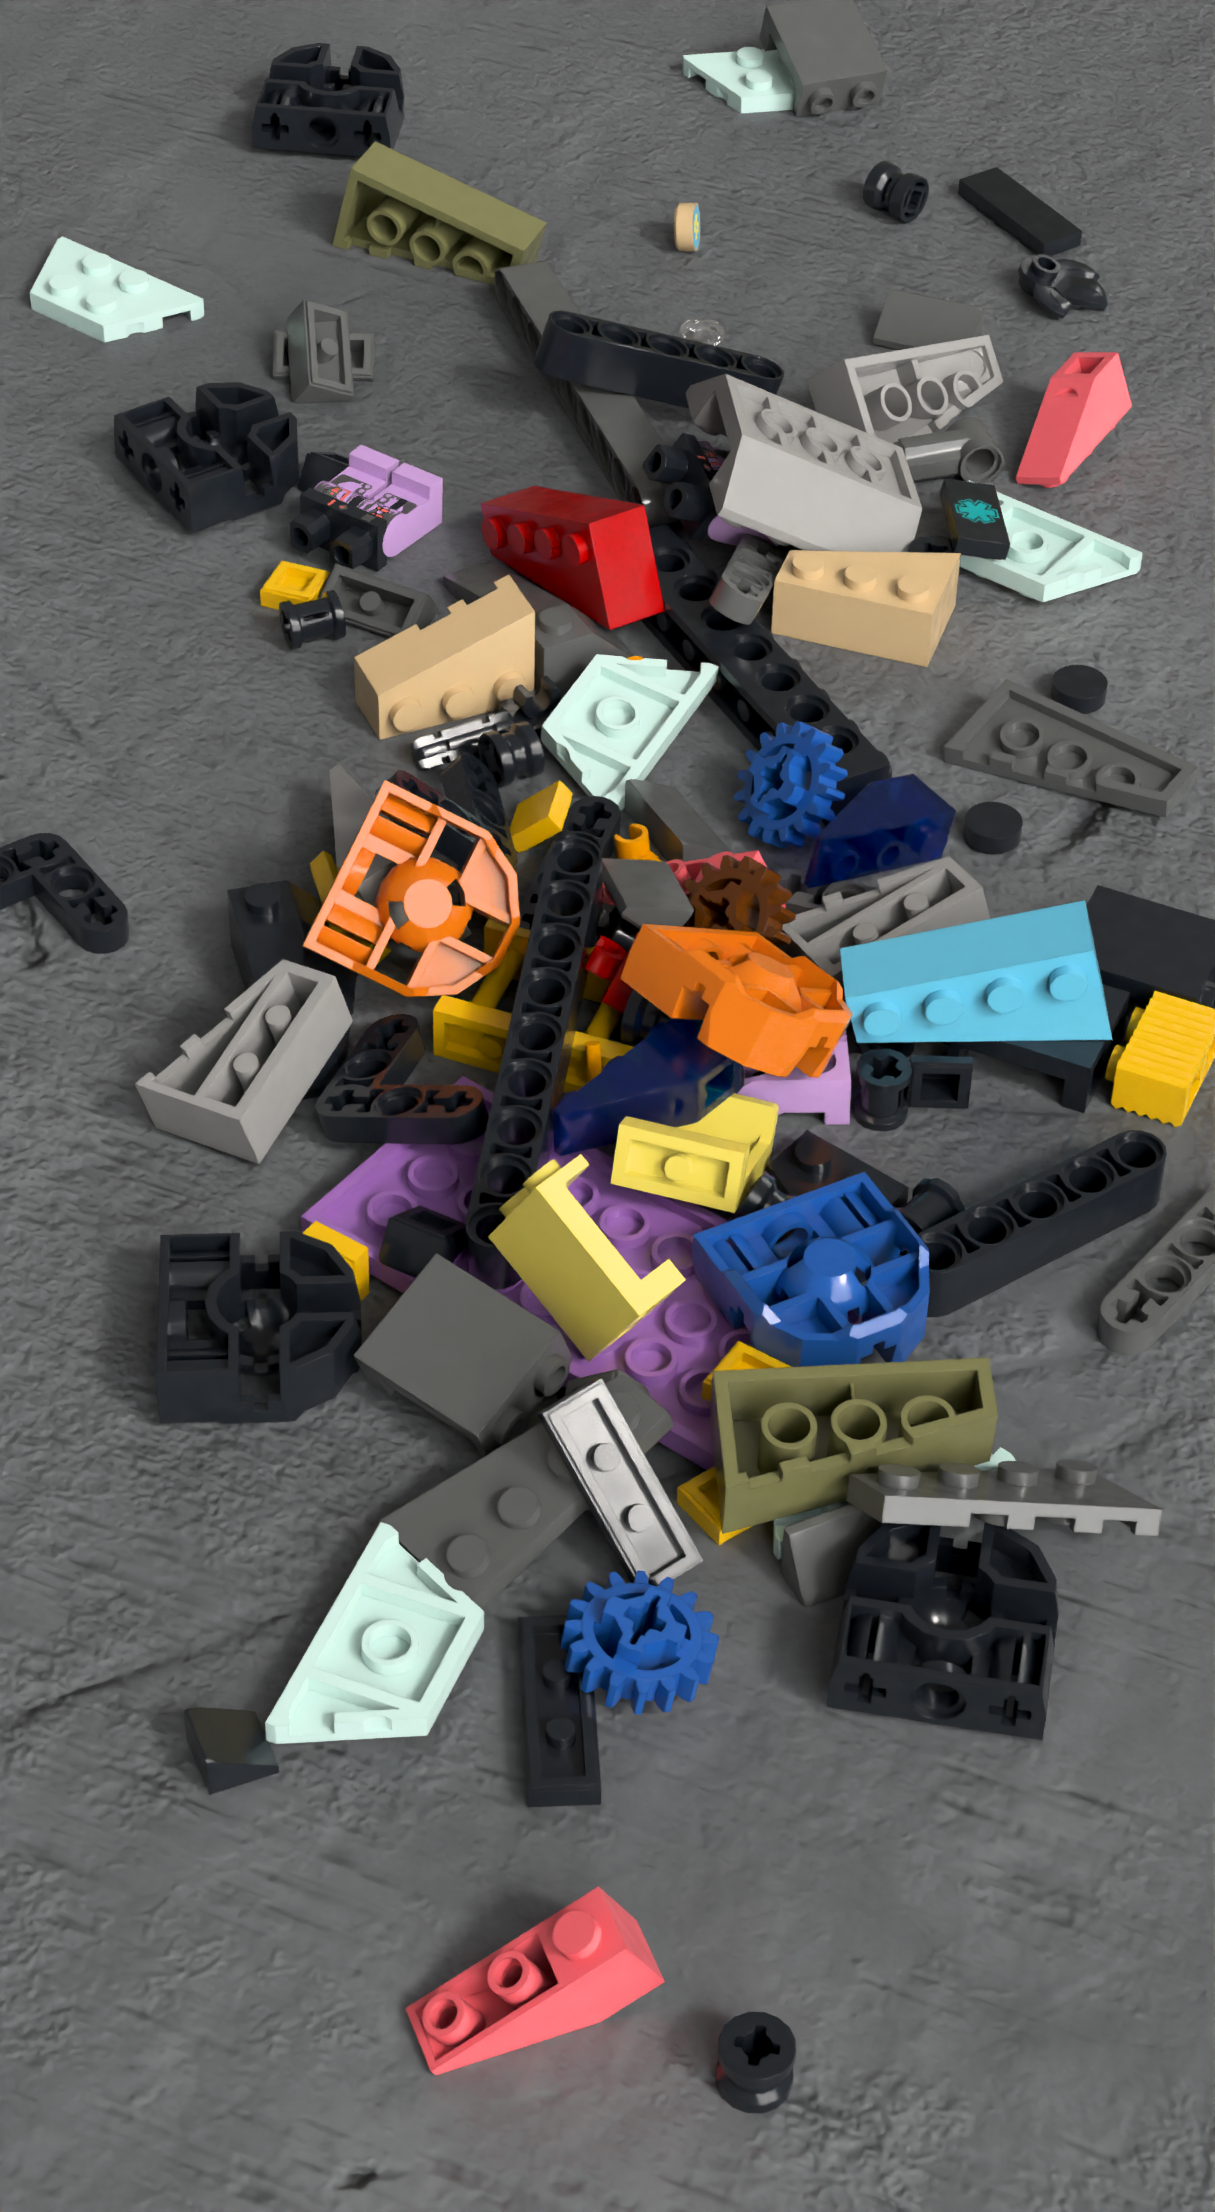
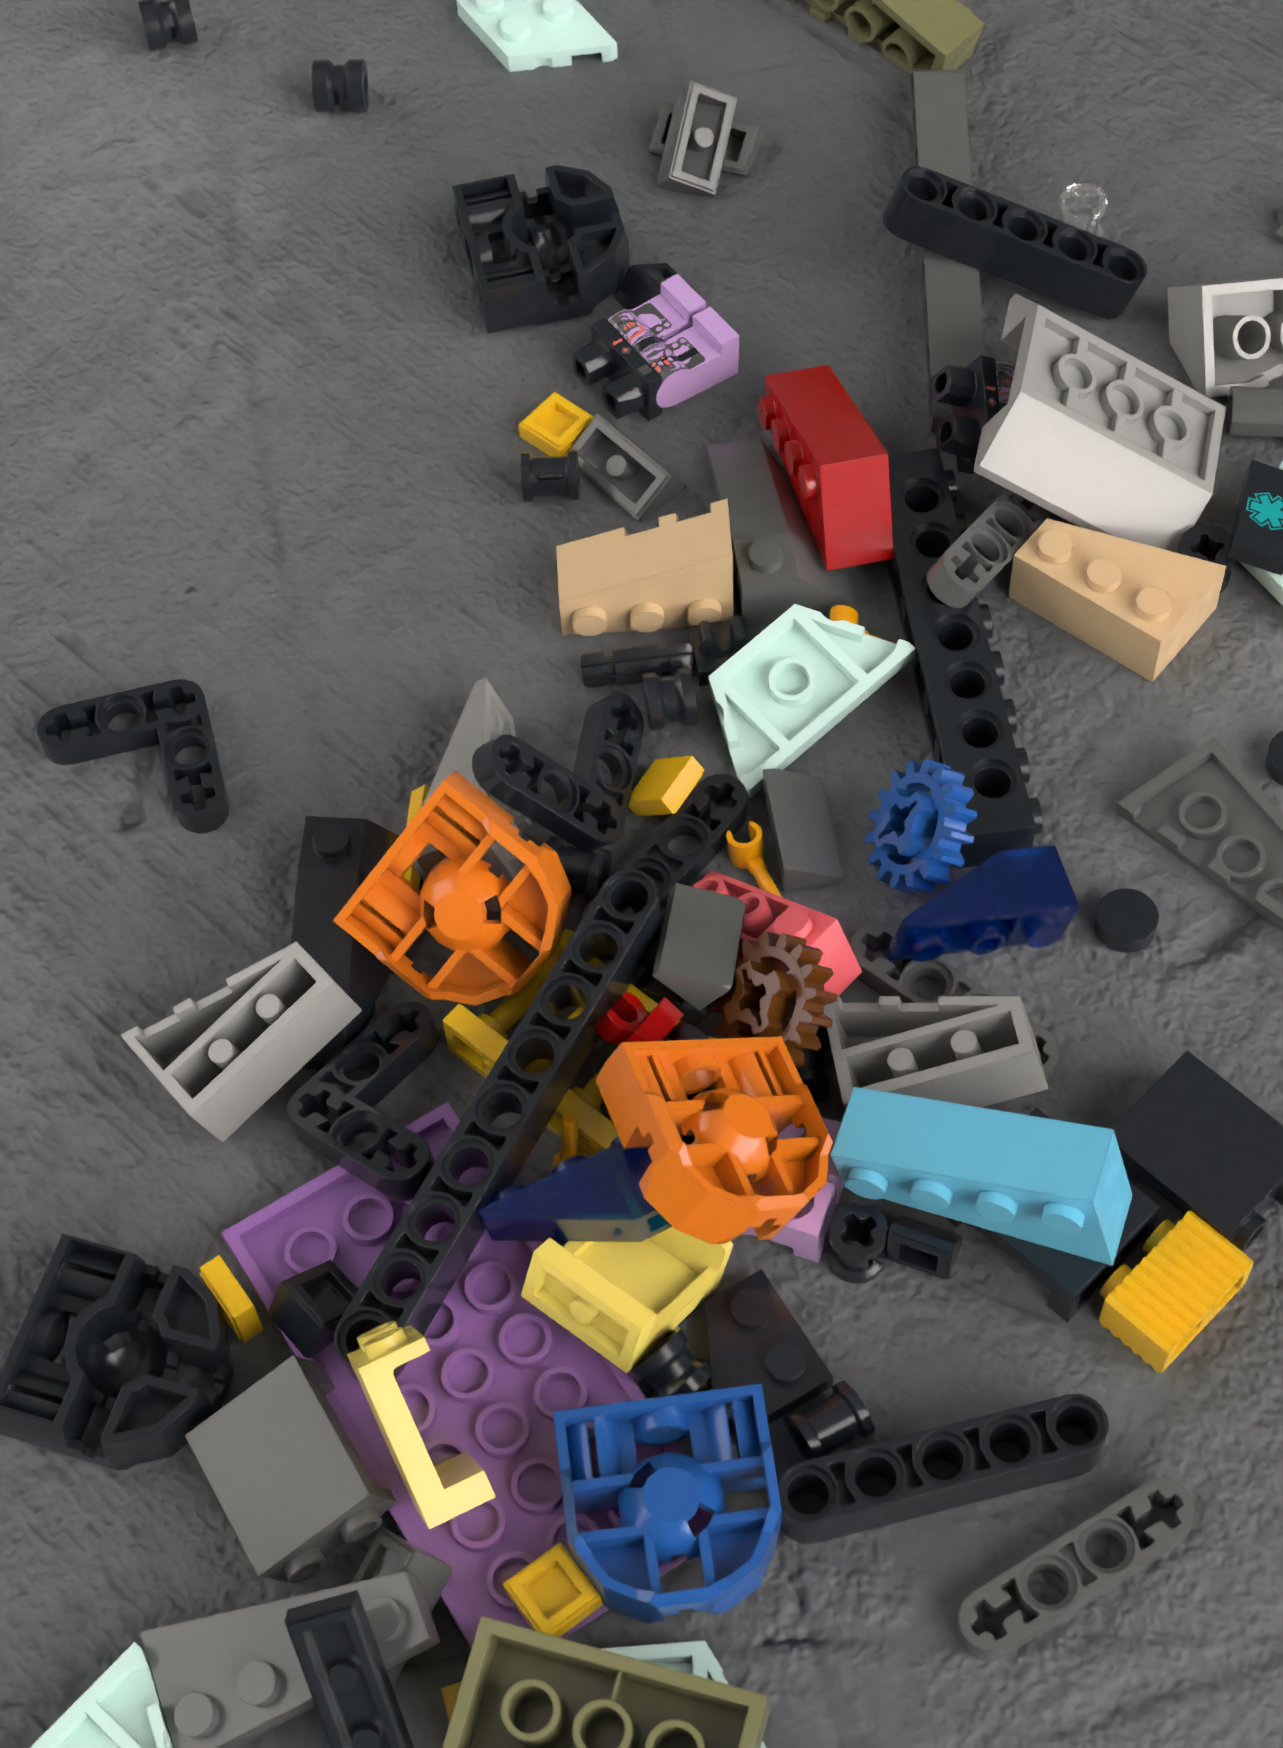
camera: 25 degrees right, 15 degrees up
(687, 227) = (1137, 49): tan tile -> none

